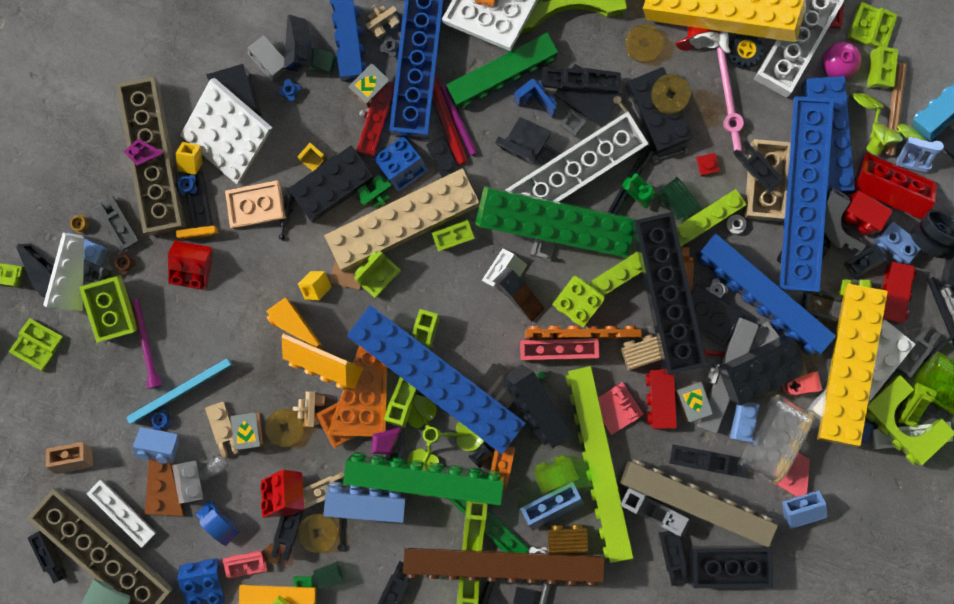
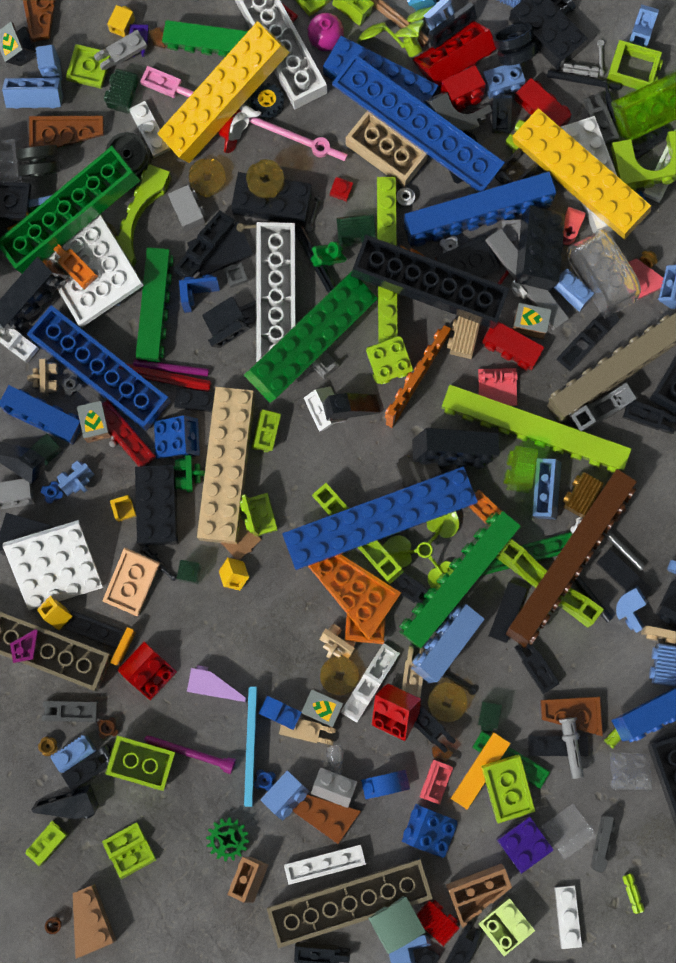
camera: 60 degrees left, 5 degrees down
(67, 275) = (90, 781): white wing -> none
(92, 412) = (223, 847): none -> green gear
(182, 181) = (70, 631): blue plate -> none
(210, 324) = (207, 683): none -> lavender slope
(220, 394) = (280, 712): none -> blue brick
(289, 319) = (252, 611): light orange slope -> none
(292, 247) = (188, 572): none -> clear green brick
(294, 457) = (370, 682): none -> white slope
(312, 104) = (76, 480): none -> medium blue hips
(320, 362) = (303, 606): light orange slope -> none
(384, 441) = (405, 595): magenta piece -> none
(426, 536) = (507, 611): none -> black tile
(483, 449) = (467, 523): black bush -> none
(559, 349) = (419, 402): coral brick -> none
(604, 44) = (186, 208): none -> light grey brick
(759, 168) = (372, 147): black hinge -> none
(816, 470) = (649, 258): none -> pearl gold plate
(916, 404) = (643, 146): lime hinge -> none
(919, 167) = (452, 25): none -> black tile

